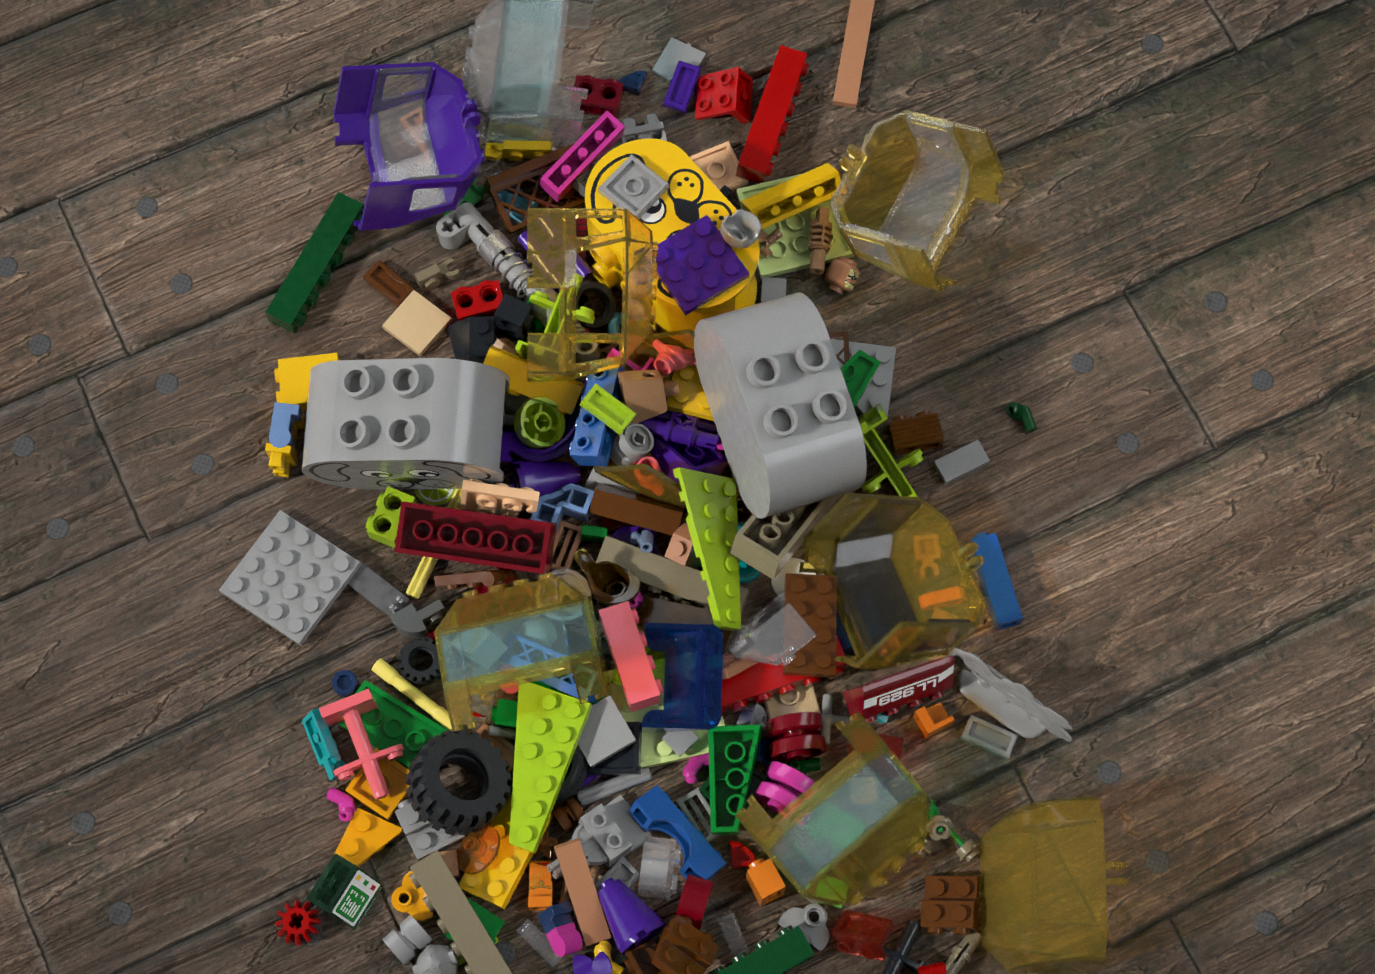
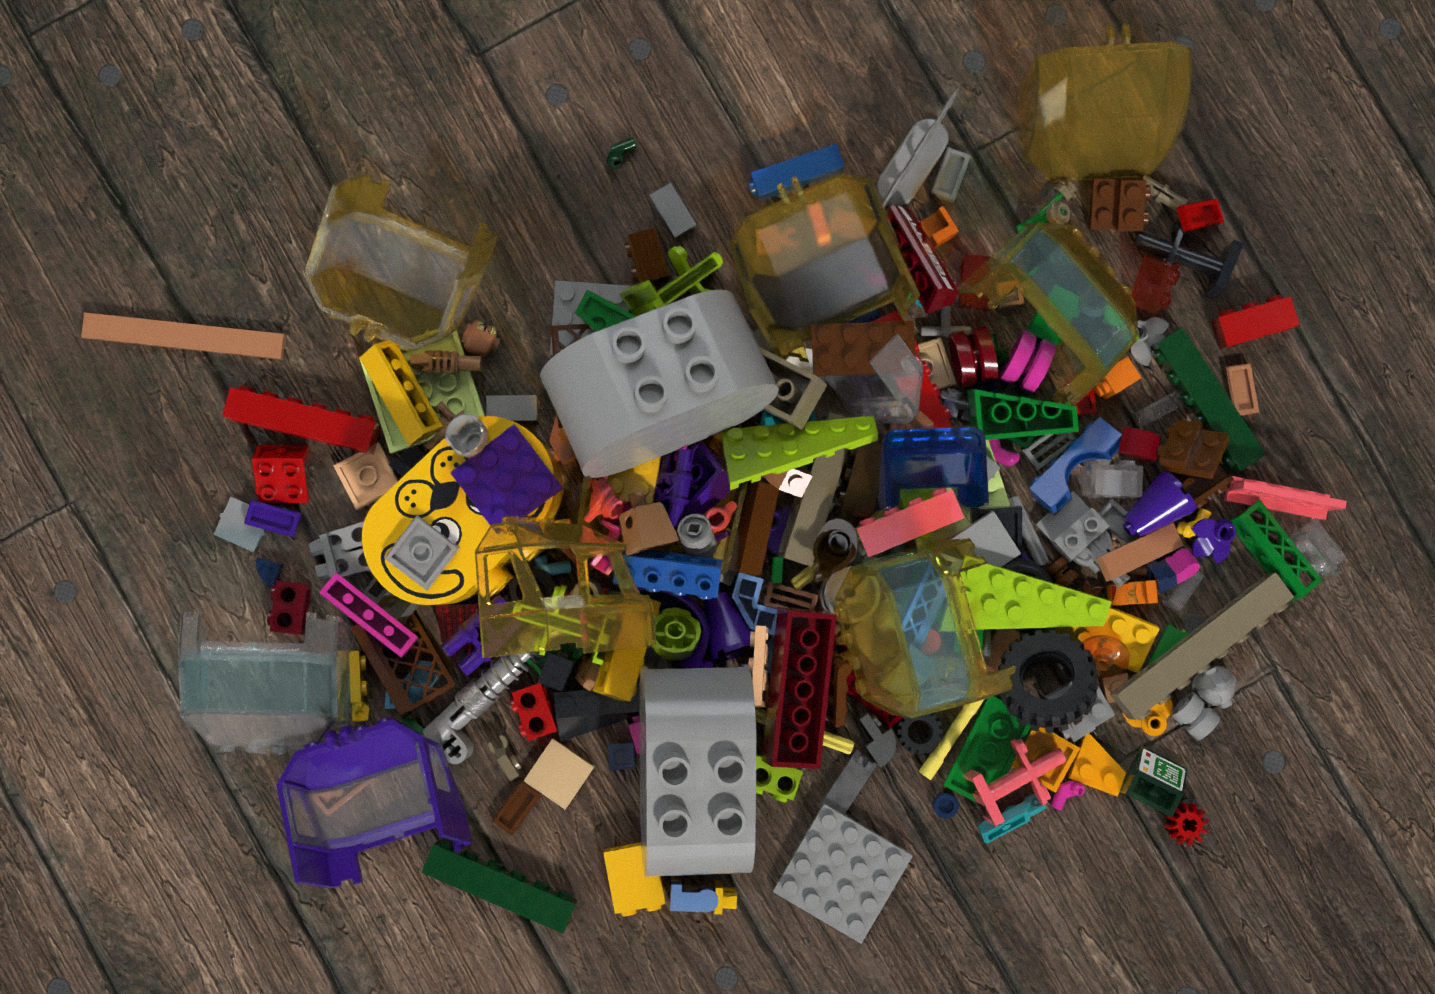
camera: 95 degrees left, 15 degrees up
(608, 409) = (669, 561): lime tile -> none
(643, 540) = (784, 518): sand blue arm -> none

